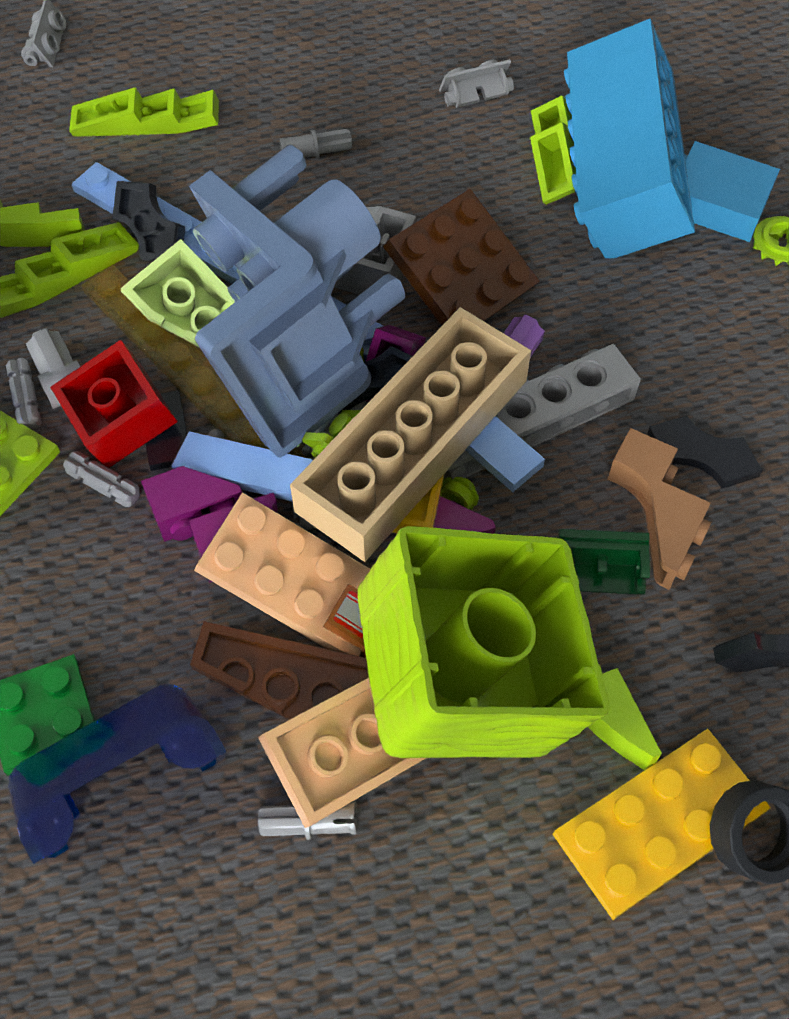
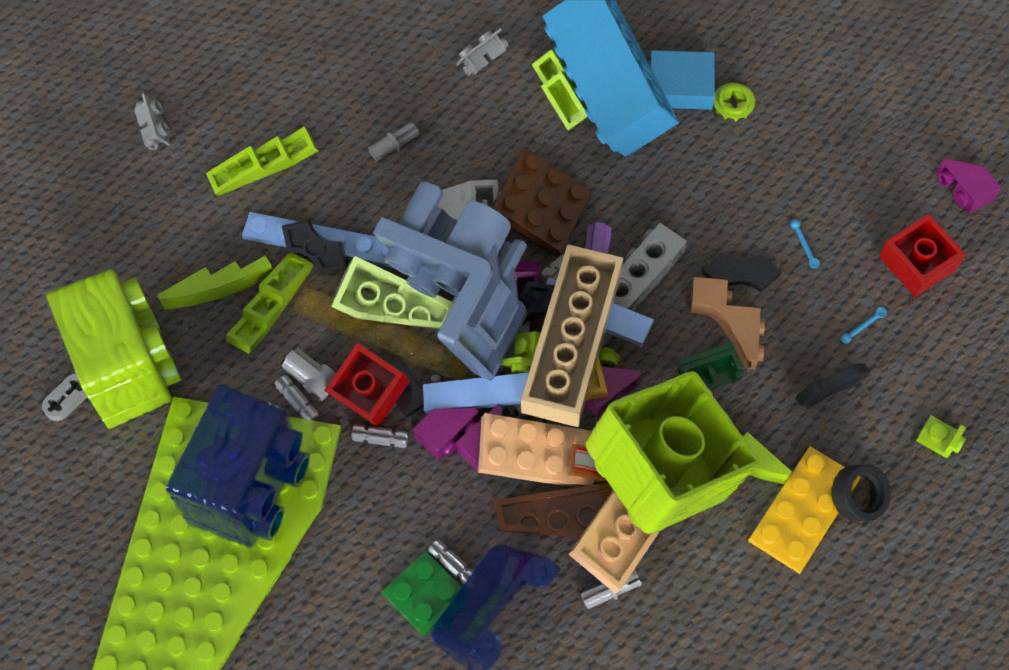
camera: 20 degrees left, 5 degrees up
(100, 679) = (450, 561): none -> light grey axle

